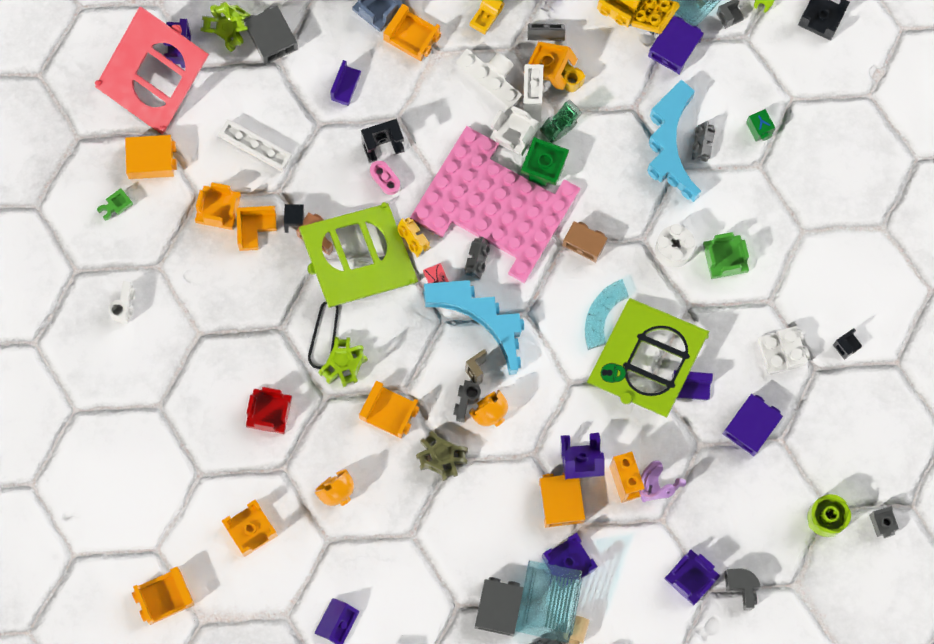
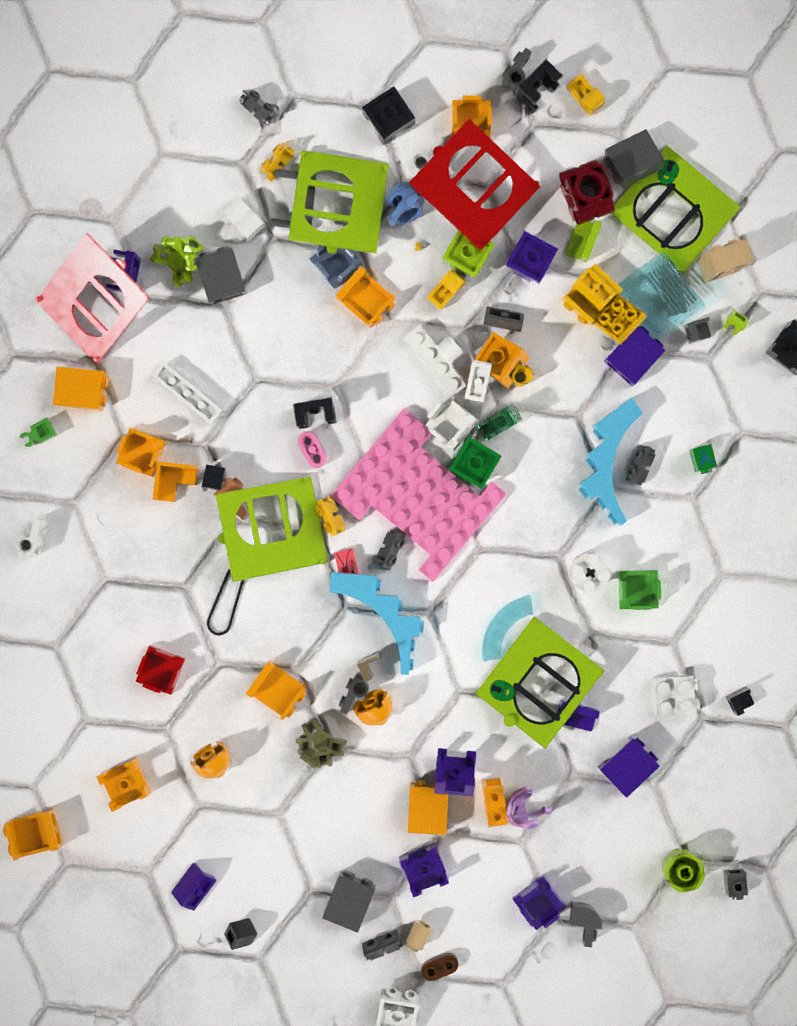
camera: 10 degrees right, 15 degrees up
(342, 360) = (239, 634): lime piece -> none
(345, 84) = (288, 342): dark purple panel -> none
(549, 601) = (397, 908): clear light blue piece -> none
(585, 241) = (501, 551): medium nougat brick -> none

